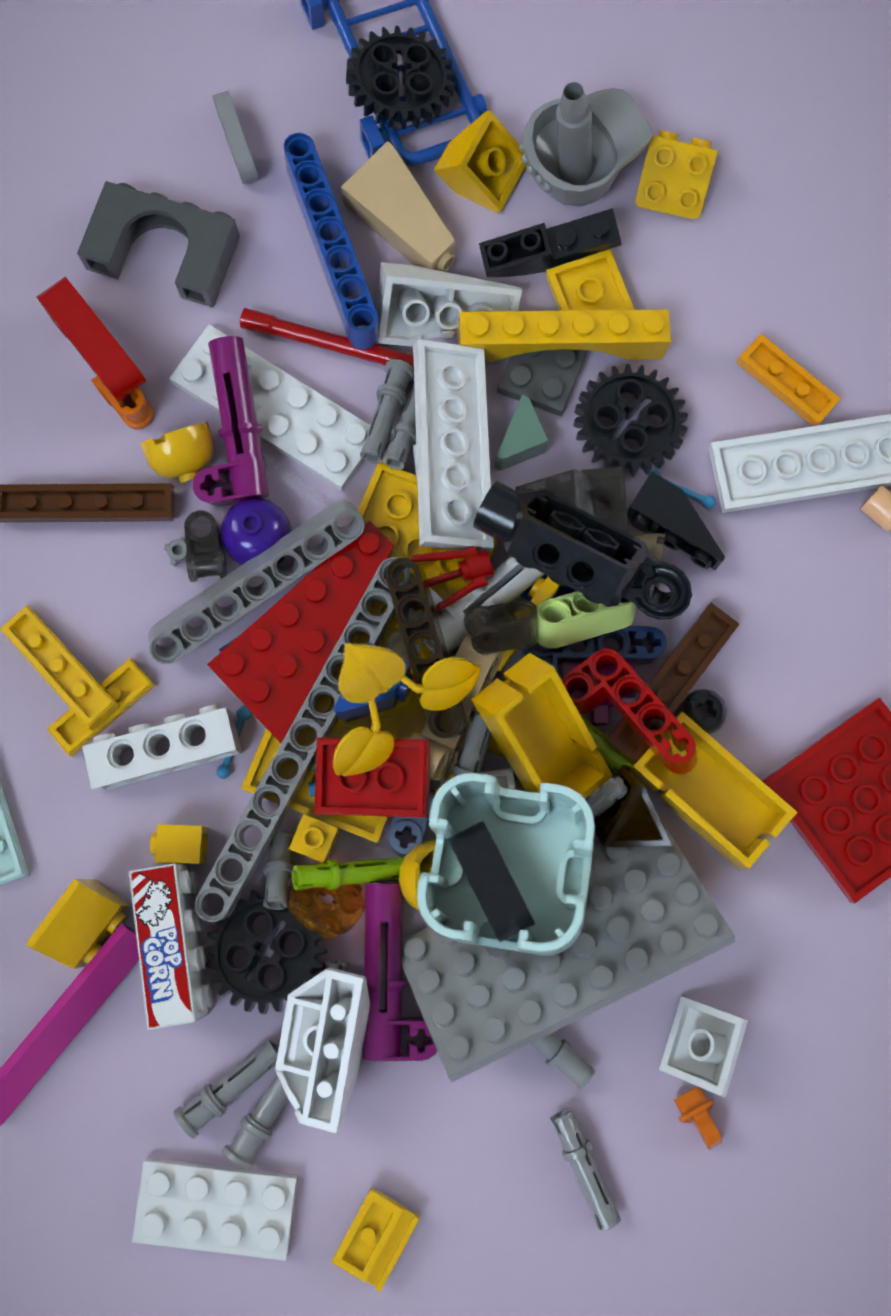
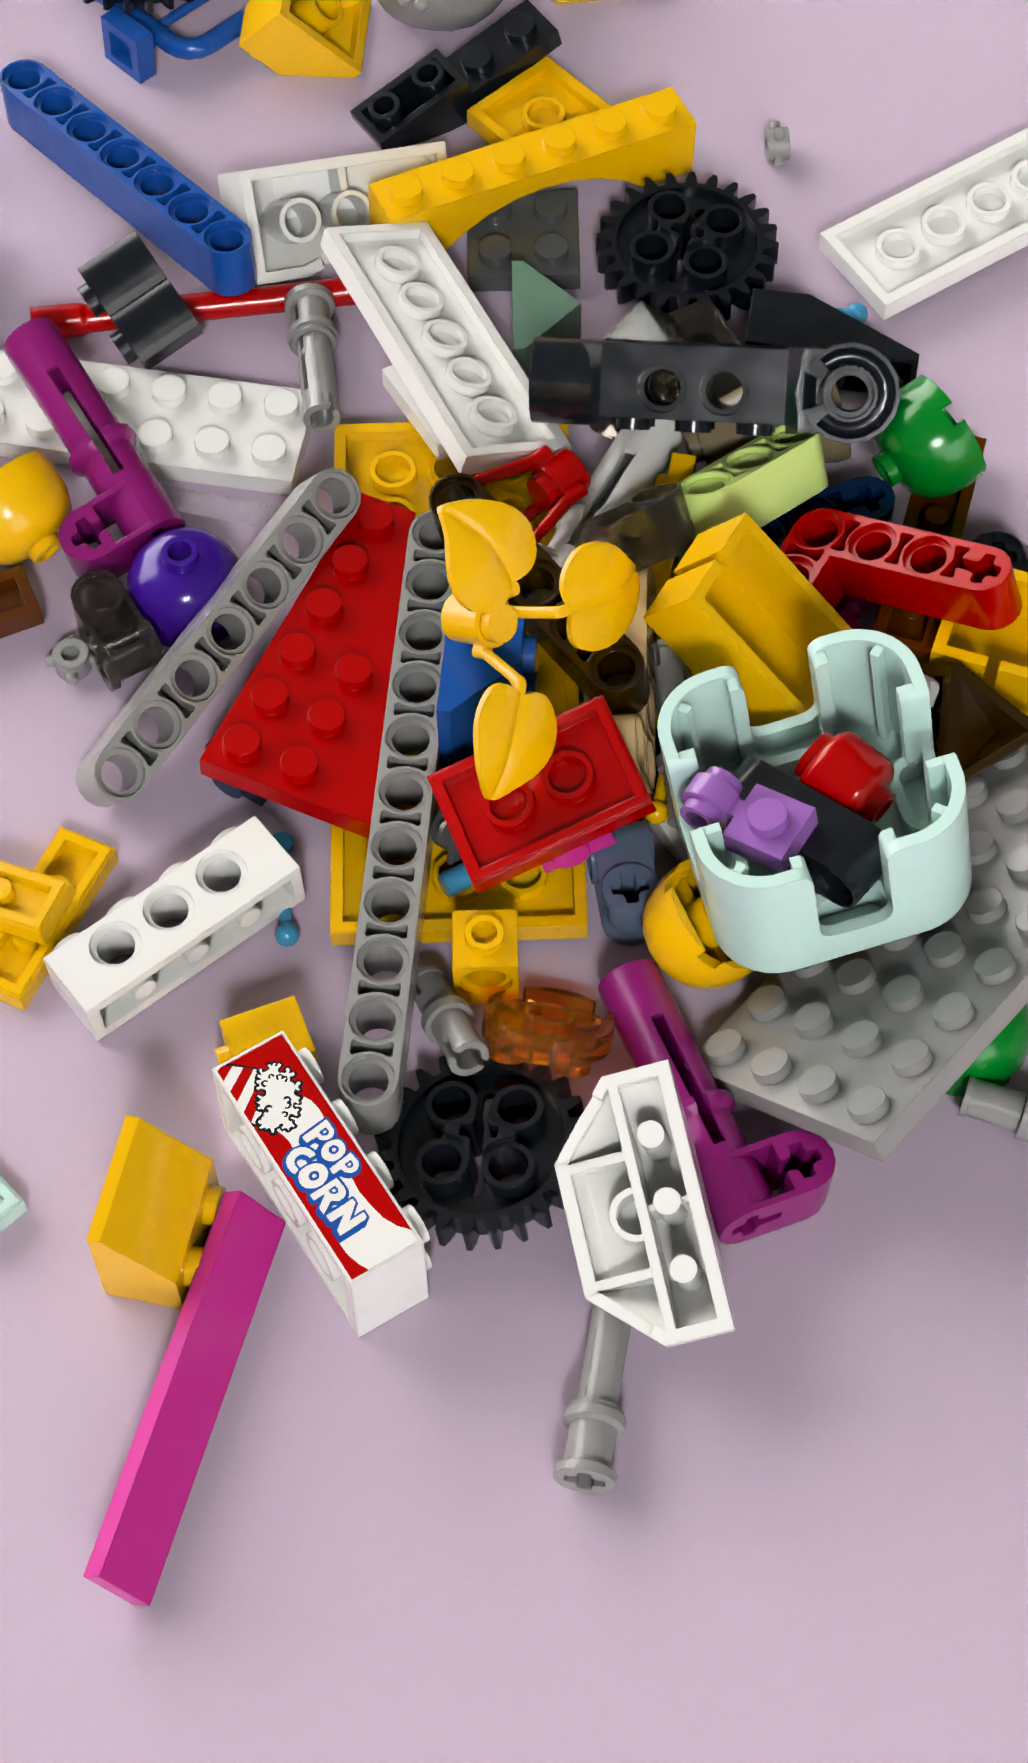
camera: 20 degrees left, 20 degrees down
(215, 1098) = (503, 1405): light grey pin -> none
(215, 1209) = (583, 1582): white plate -> none
(300, 336) = (139, 301): none -> black brick
(336, 874) = (543, 979): lime pin -> none
(375, 1238) = (877, 1507): yellow plate -> none
(399, 211) = (210, 112): tan slope -> none
(402, 436) = (359, 370): light grey pin -> none
(467, 881) = (761, 828): none -> medium lavender plate
(532, 859) = (849, 774): none -> red head
(695, 630) = (926, 446): none -> green cylinder
(717, 364) = (777, 144): none -> light grey piece
(788, 380) = (888, 127): light orange plate -> none

